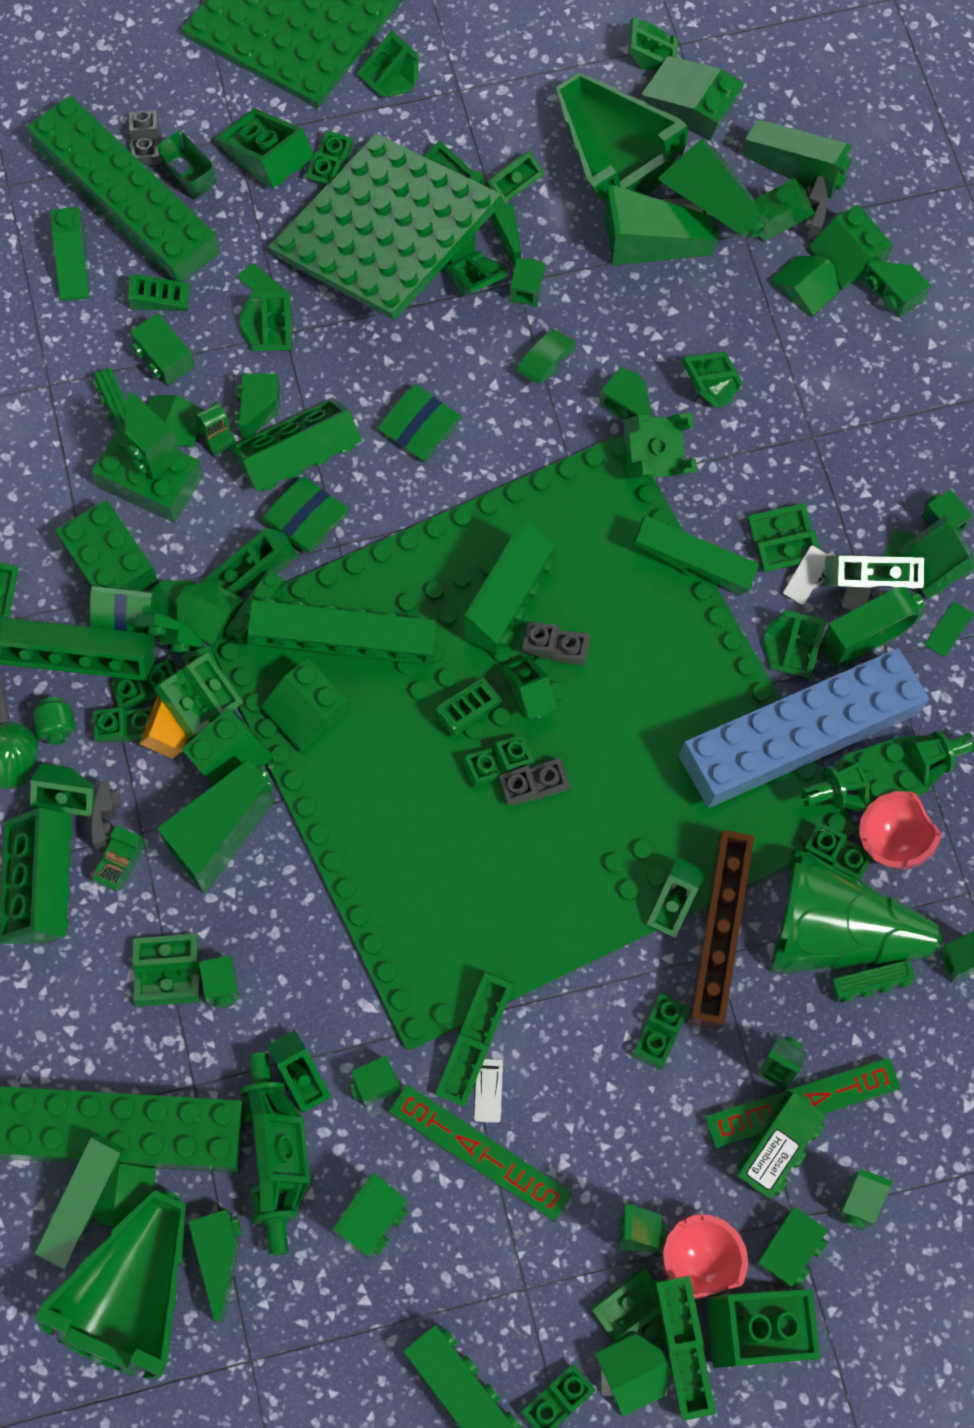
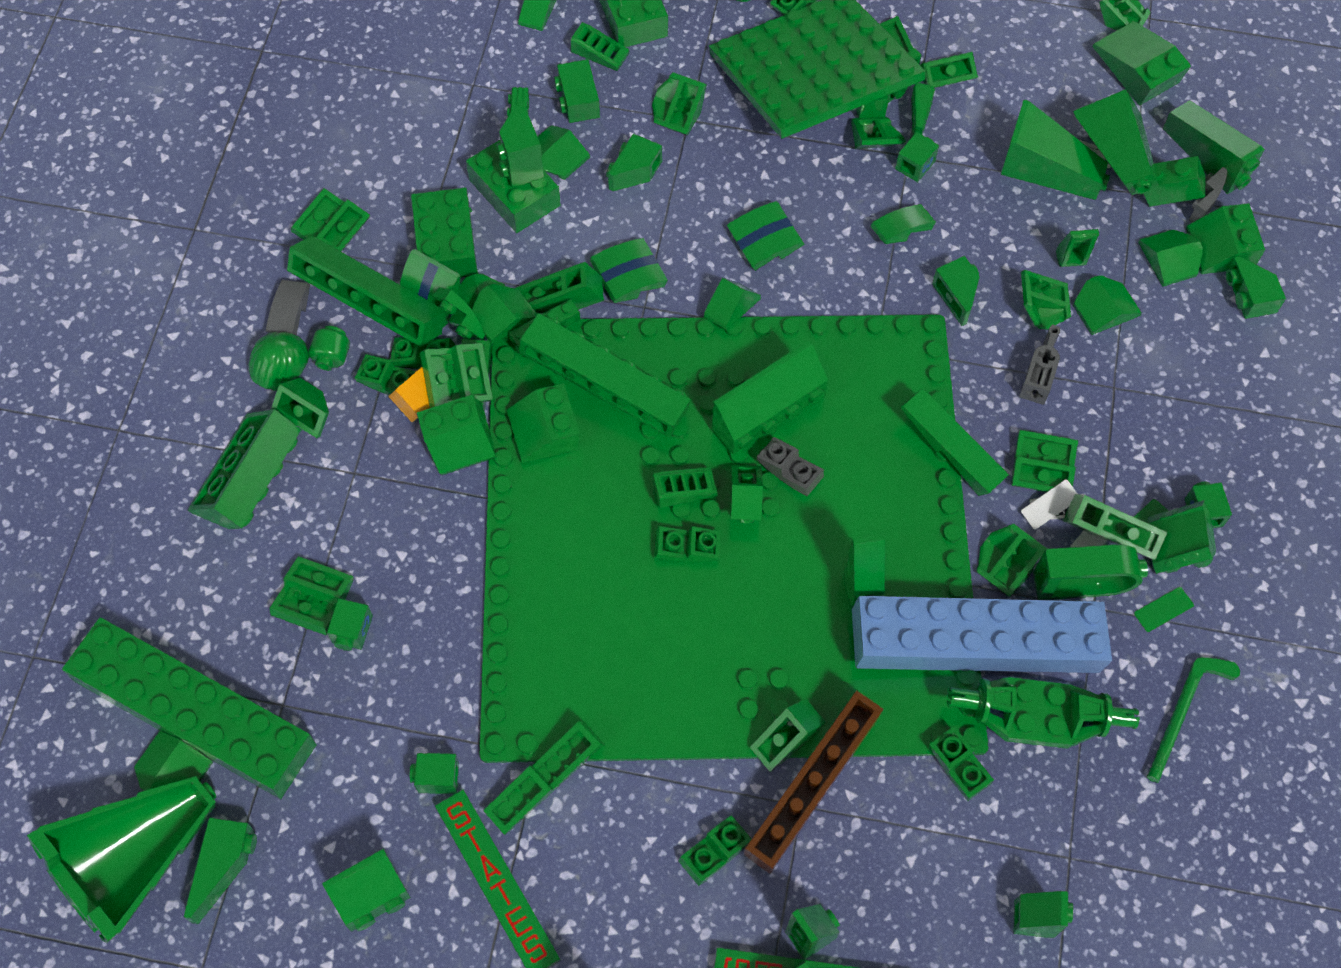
camera: 25 degrees right, 5 degrees down
(79, 1200) = (129, 753): green slope -> none
(104, 810) = (330, 438): dark grey slope -> none
(119, 859) = (321, 484): green leg -> none
(215, 429) = (587, 169): green leg -> none
(218, 822) = (417, 489): green slope -> none
(259, 280) = (687, 67): green sticker -> none
(279, 1150) = (317, 796): green plate -> none
(296, 444) = (650, 210): green slope -> none
(299, 1071) = (375, 733): green slope -> none
(421, 507) = (730, 303): none -> green slope
(489, 1092) = (533, 831): white sticker -> none
(535, 783) = (711, 578): dark grey slope -> none
(619, 135) = (1056, 67): green cone -> none
(657, 446) = (963, 335): green panel -> none
(677, 714) = (865, 567): none -> green slope
(720, 314) = (1076, 248): none -> green slope
(741, 455) = (1042, 369): none -> dark grey piece
(768, 358) = (1104, 304): none -> green slope
(845, 923) = (935, 830): green cone -> none
(873, 981) = (936, 896): green piece -> none
(898, 831) = (1025, 768): coral cylinder -> none

